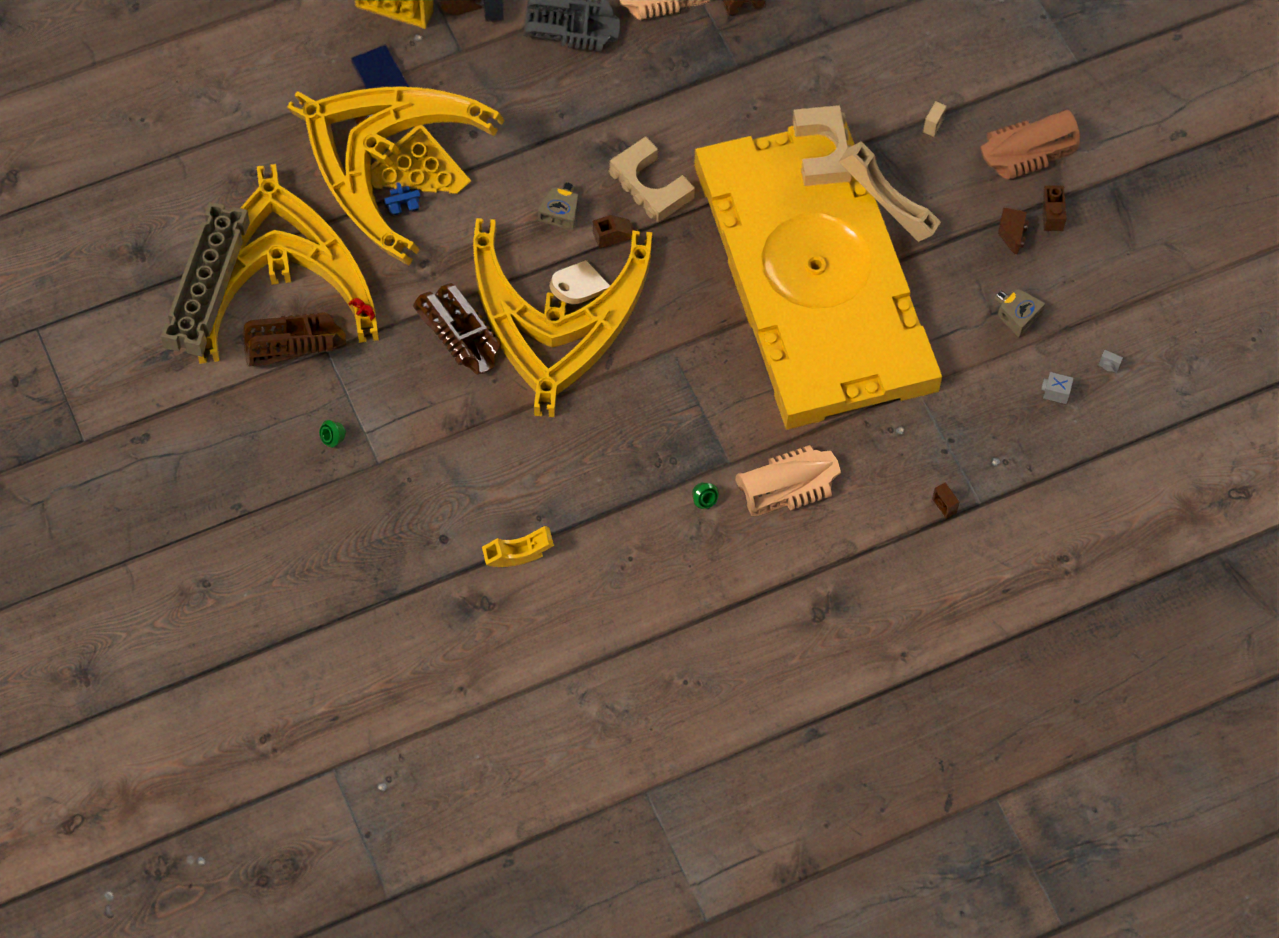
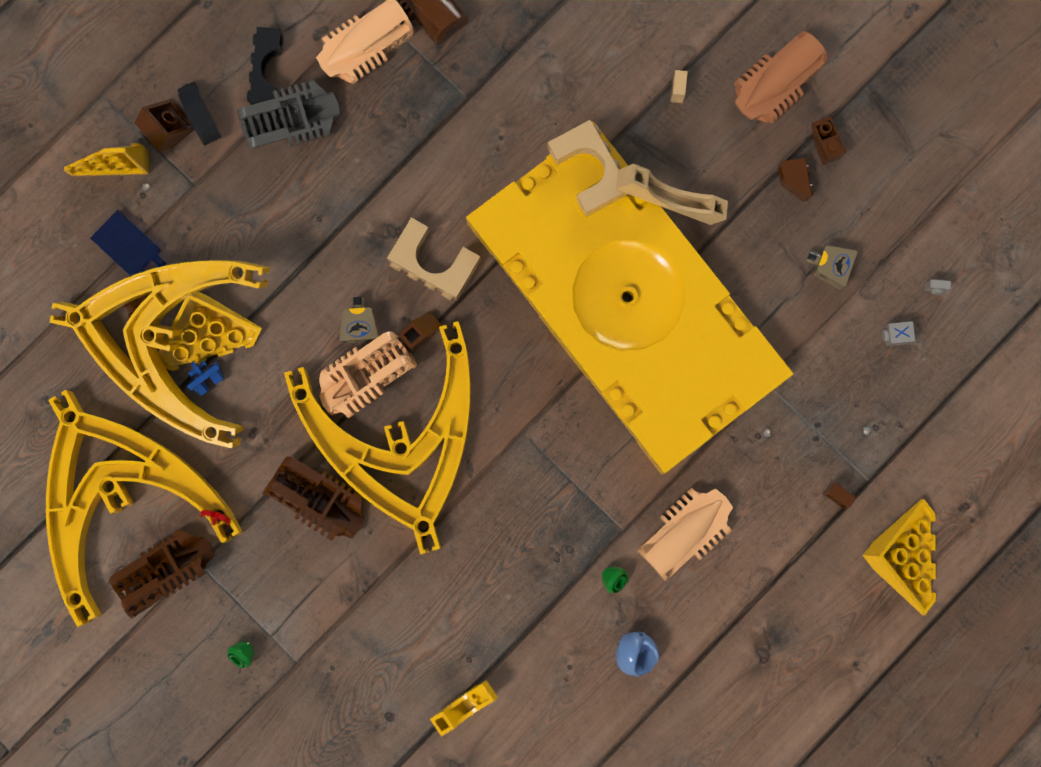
camera: 15 degrees left, 20 degrees up
(205, 279) = (50, 550): dark tan brick -> none
(541, 246) = (361, 377): none -> light nougat connector
(579, 282) = (409, 401): tan tile -> none
(698, 561) = (636, 654): none -> medium blue piece
(990, 576) = (904, 556): none -> yellow slope

